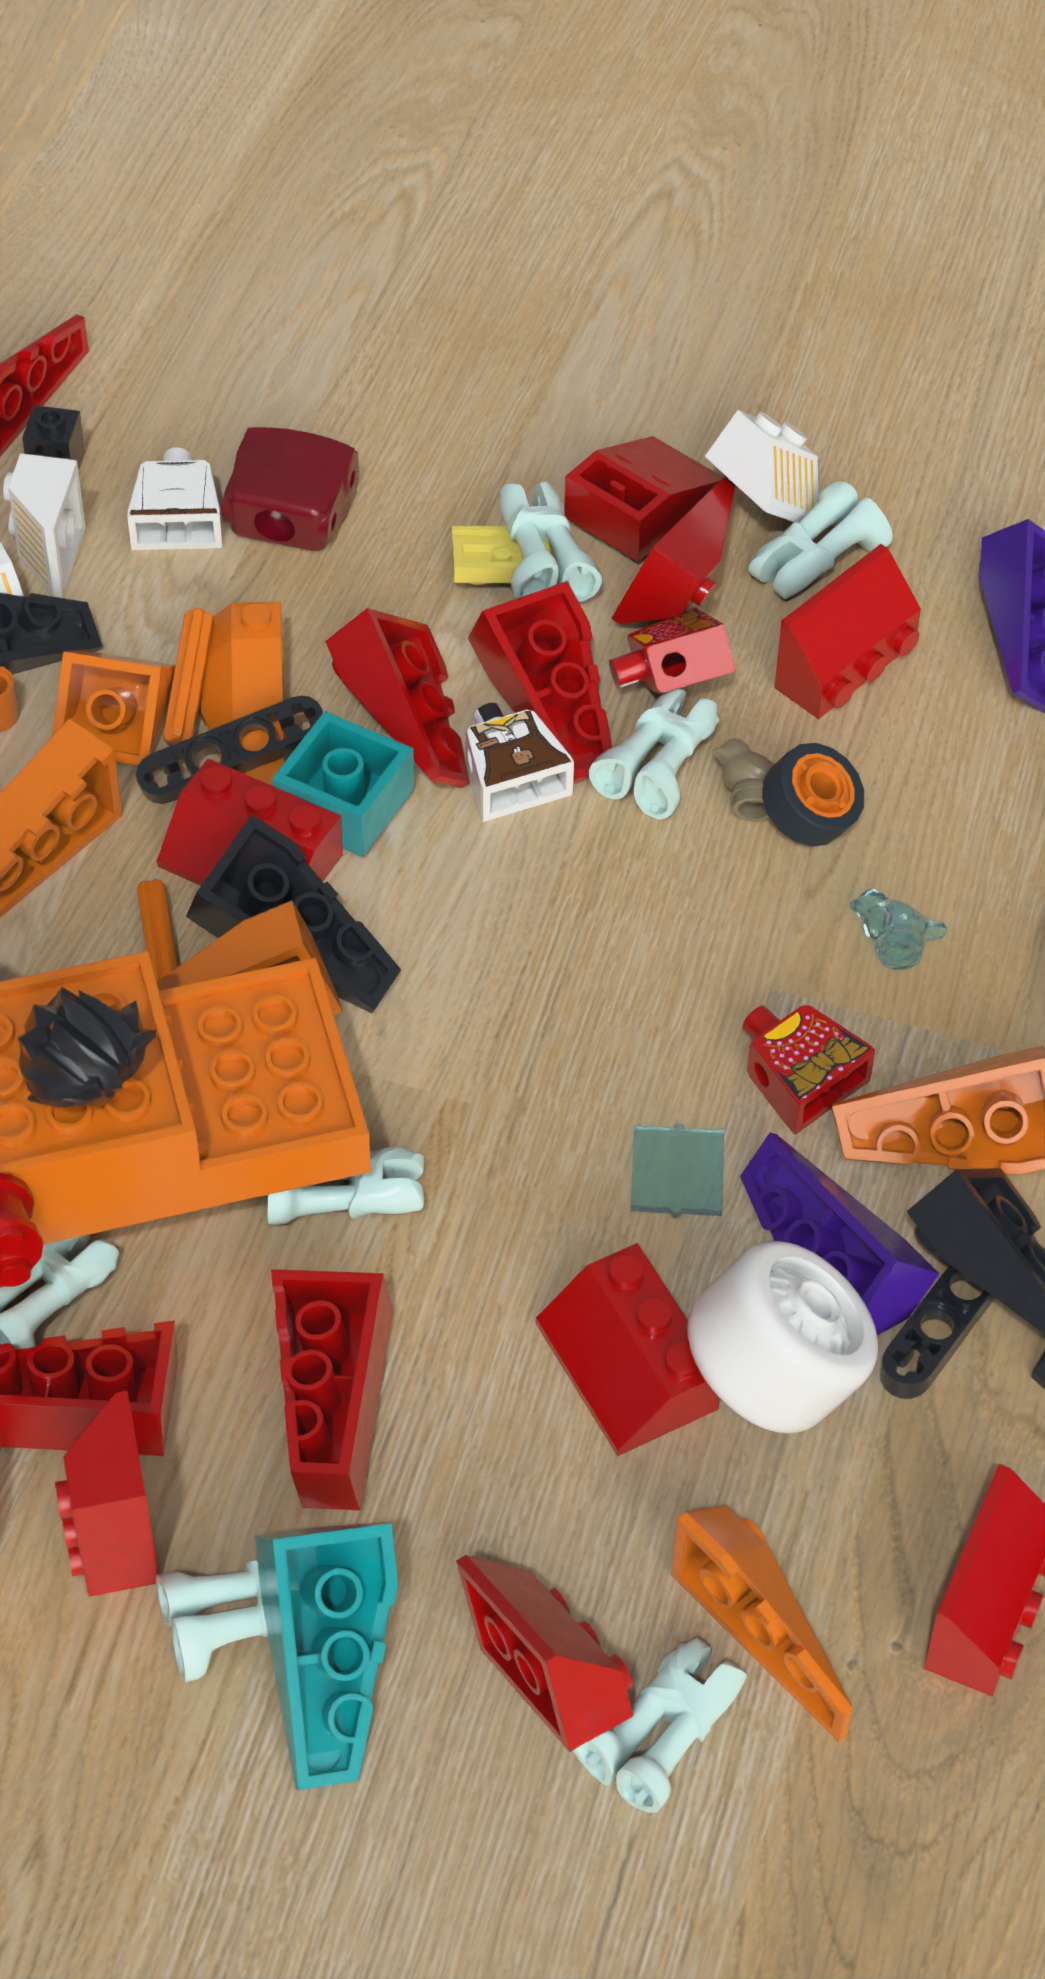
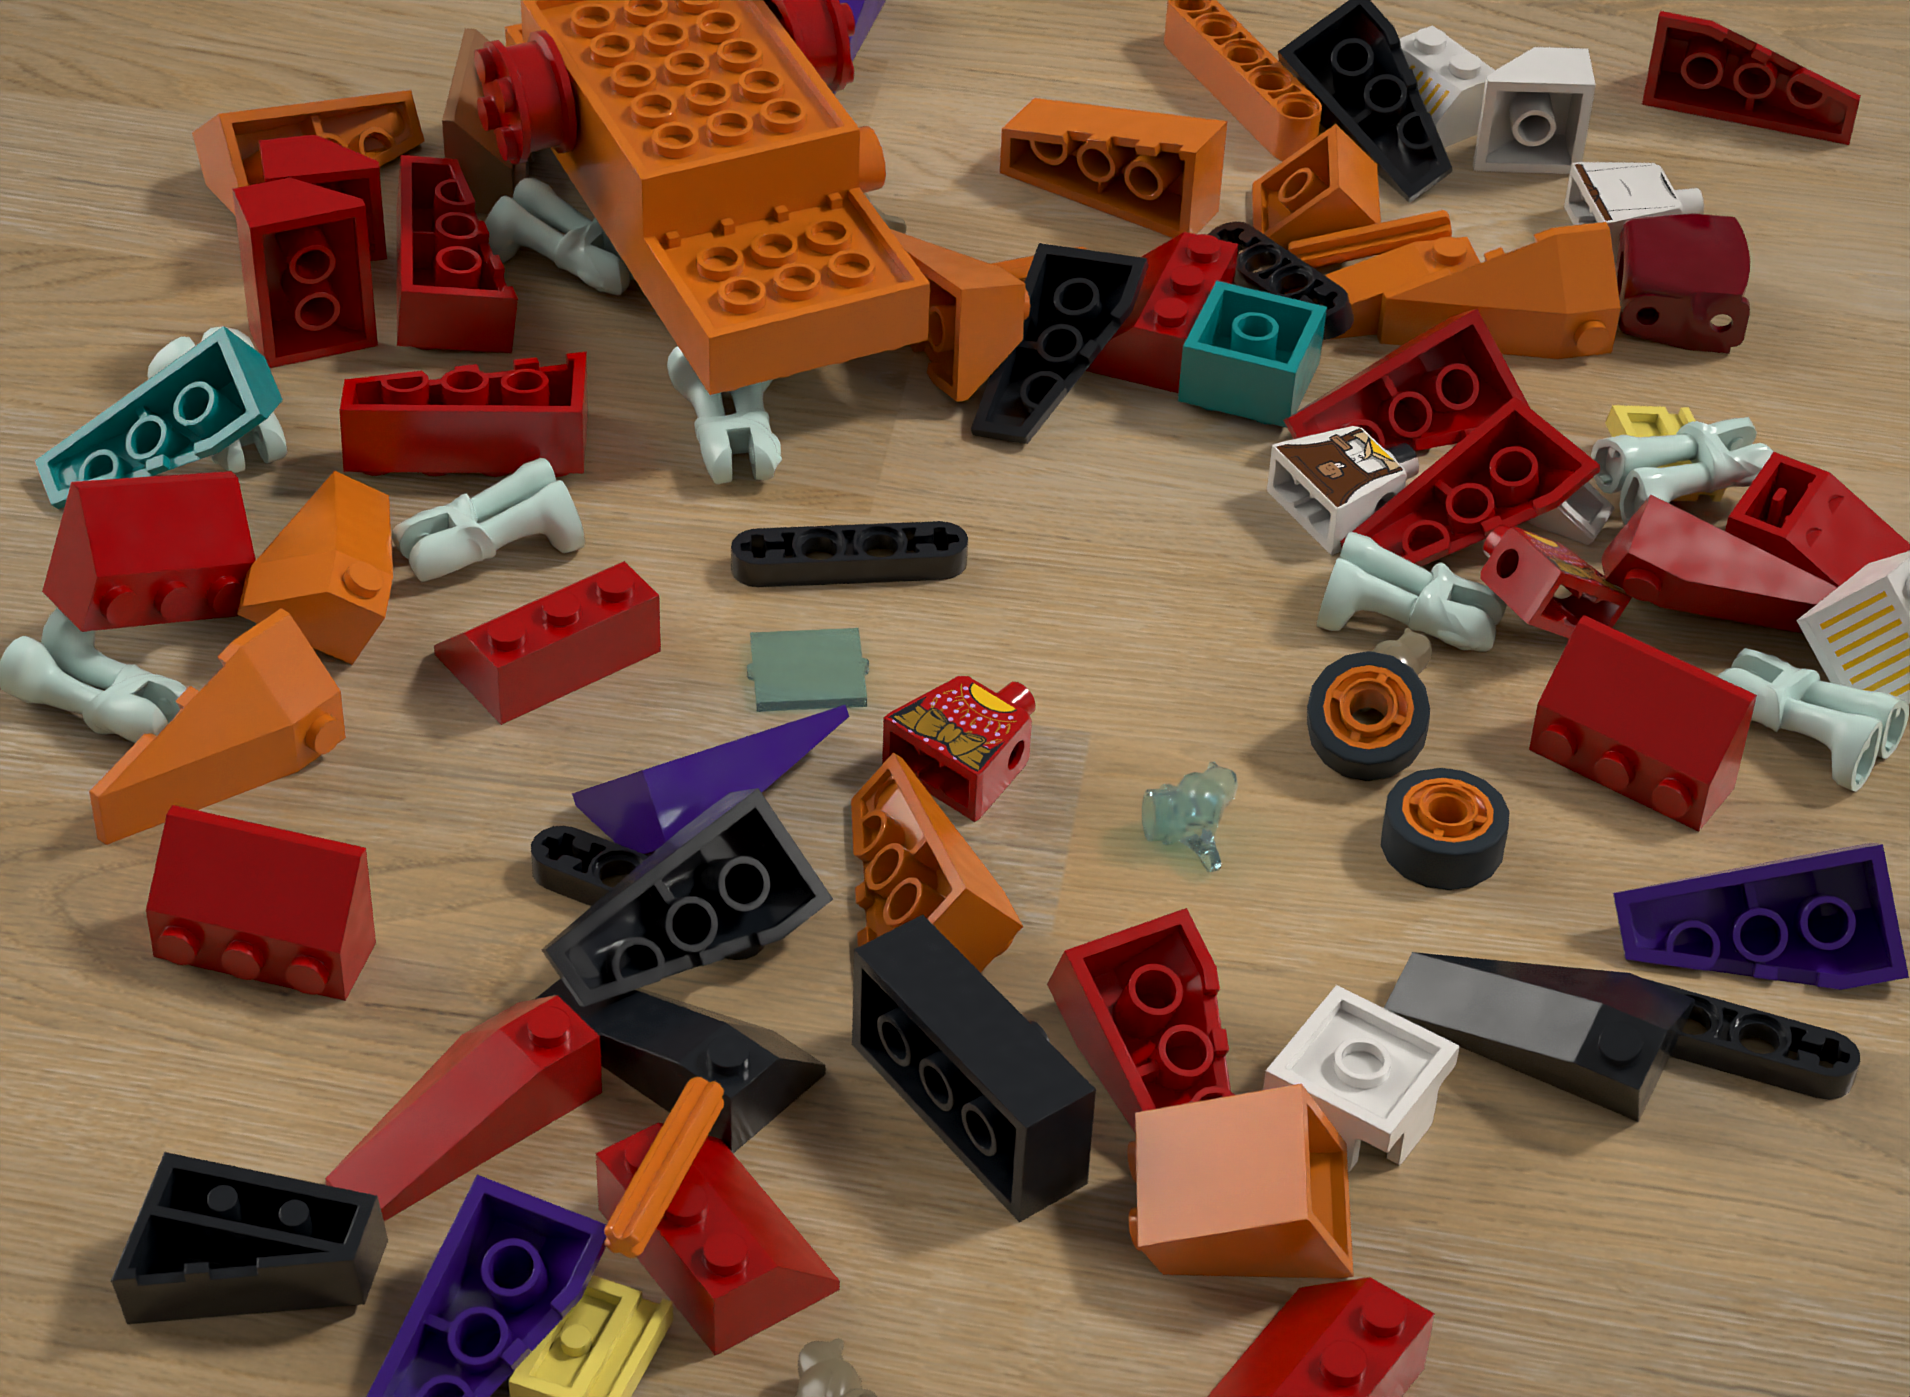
camera: 80 degrees right, 10 degrees down
(54, 434) = (1669, 117): black brick -> none
(80, 1049) = (694, 69): black hair -> none
(310, 587) = (1536, 300): none -> orange wedge
(470, 1410) = (474, 528): none -> light aqua piece
(538, 1119) = (850, 559): none -> black beam
(549, 1510) = (328, 568): none -> orange wedge
(782, 1337) = (510, 735): white wheel -> none
(922, 780) = (1445, 828): none -> black wheel

